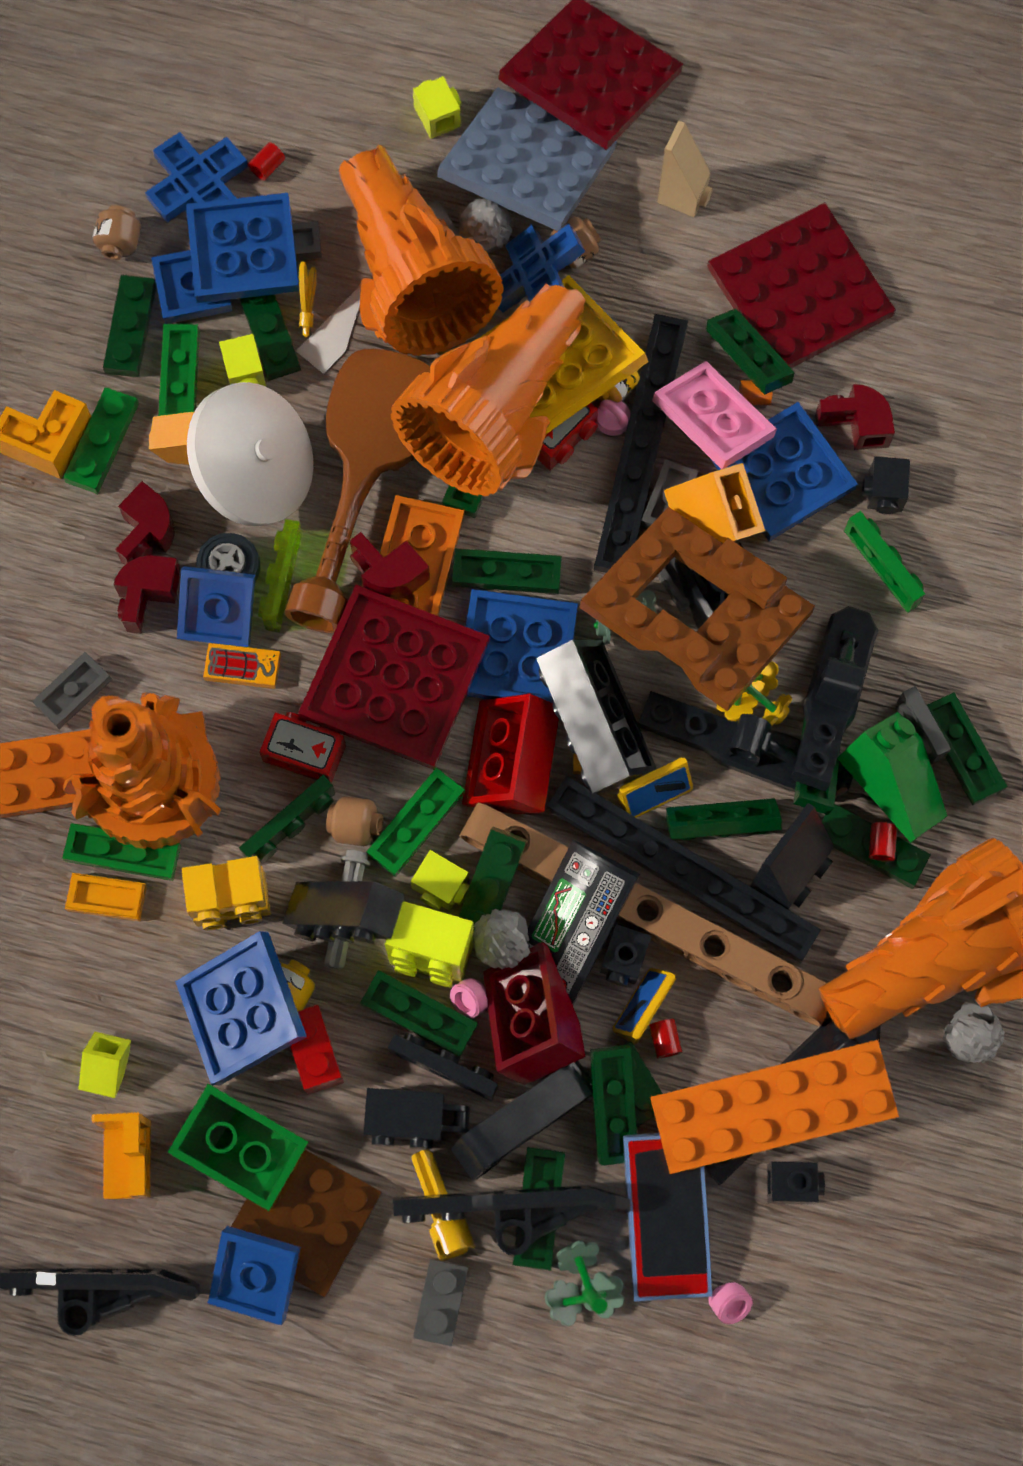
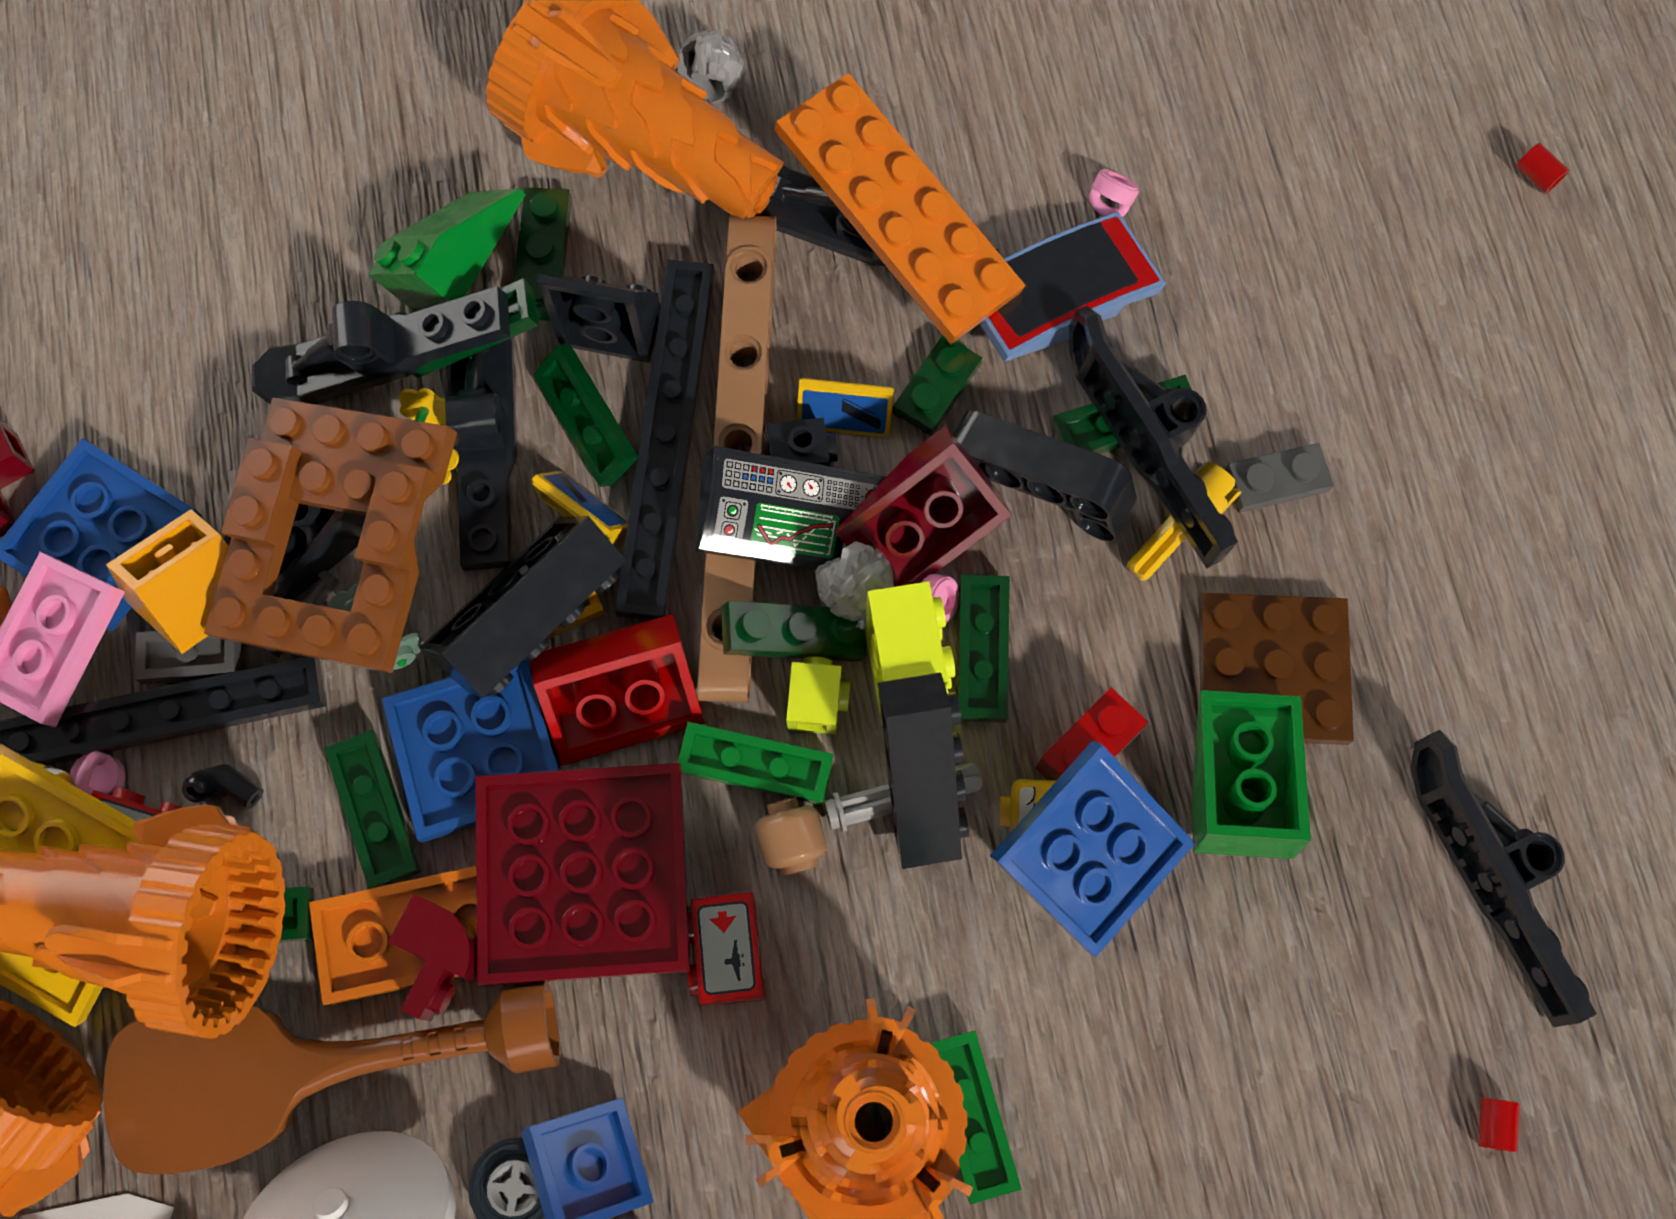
camera: 115 degrees left, 0 degrees up
(104, 1064) = (1238, 990): neon yellow brick -> none
(106, 897) = (1037, 1108): light orange tile -> none
(126, 1155) = (1328, 904): light orange panel -> none
(226, 892) = (963, 940): yellow brick -> none
(242, 665) = (650, 1093): tile -> none
(253, 1275) = (1374, 680): blue plate -> none
(280, 575) = (501, 1105): clear neon green plate -> none
(290, 820) = (830, 917): dark green plate -> none
(410, 1117) = (1106, 598): black brick -> none
(444, 1065) = (1028, 590): black plate -> none
(573, 487) = (221, 782): none -> black arm
(598, 1294) = (1177, 320): sand green plant -> none
(612, 1101) = (973, 386): dark green plate -> none
(665, 1038) = (872, 368): red hinge -> none
(794, 1183) = (963, 175): black brick -> none
(883, 841) = (535, 229): red hinge -> none
(885, 561) = (176, 370): green plate -> none
(887, 485) = (70, 405): black brick -> none
(916, 711) = (357, 259): dark grey plate -> none
(968, 753) = (381, 201): dark green plate -> none

